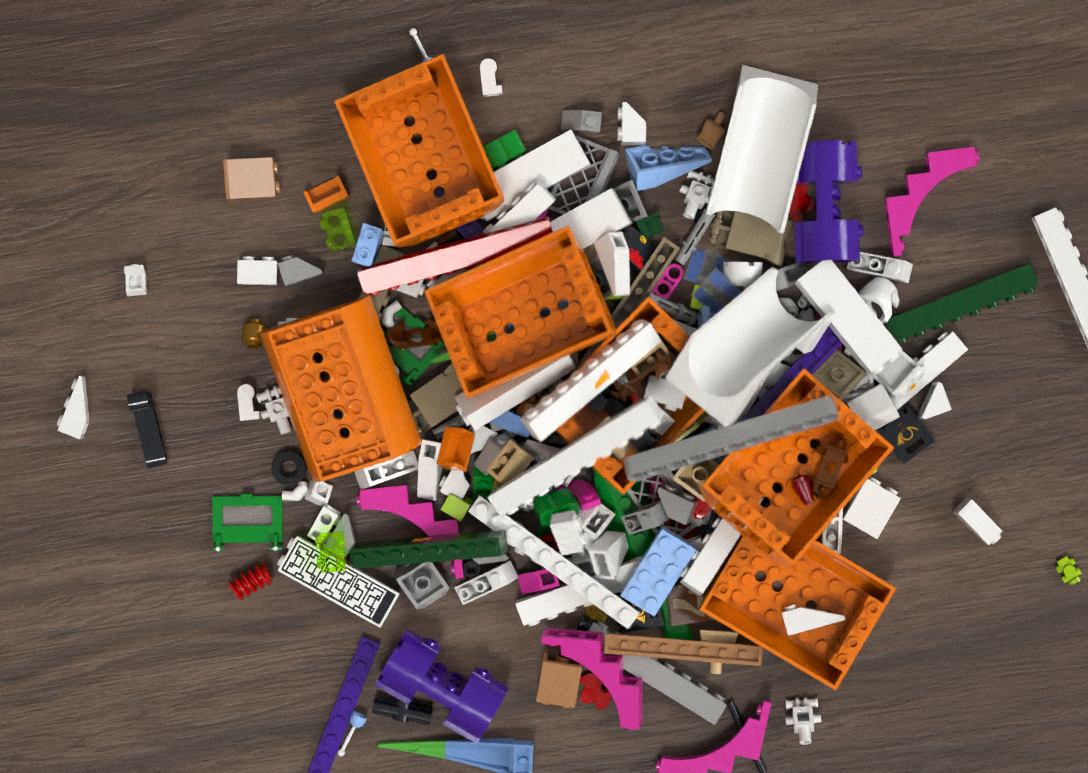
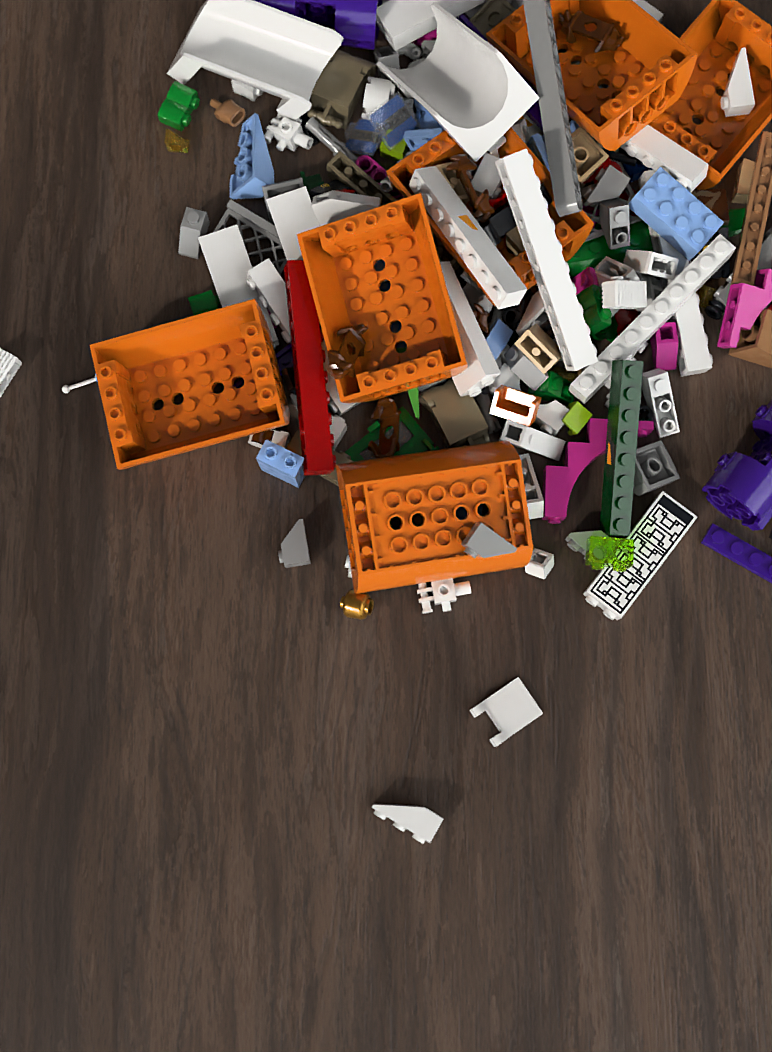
camera: 80 degrees left, 10 degrees down
(135, 280) = (275, 726): white bracket -> none
(148, 427) = (443, 738): black beam -> none
(184, 483) = (509, 710): none -> white flag
(246, 395) = (431, 625): white leg -> none
(247, 520) = (559, 646): green piece -> none
(251, 179) = (187, 580): slope -> none
(251, 581) = (628, 651): red piece -> none
(257, 272) = (289, 589): white brick -> none
(277, 468) = (514, 579): black tyre -> none
(297, 494) = (538, 587): white arm -> none
(313, 438) = (485, 543): none -> light grey slope
(324, 521) = (574, 562): leg -> none
(326, 195) = (219, 503): orange panel -> none
(342, 228) = (259, 491): clear neon green brick -> none
(387, 317) = (356, 455): white arm -> none
(459, 287) = (340, 361): none -> reddish brown piece
(488, 70) = (130, 318): white leg -> none
(632, 126) = (206, 182): white slope -> none
(673, 88) = (176, 143): none -> clear yellow slope
(709, 83) = (178, 106): none -> green brick
(802, 488) = (609, 54): dark red cone -> none

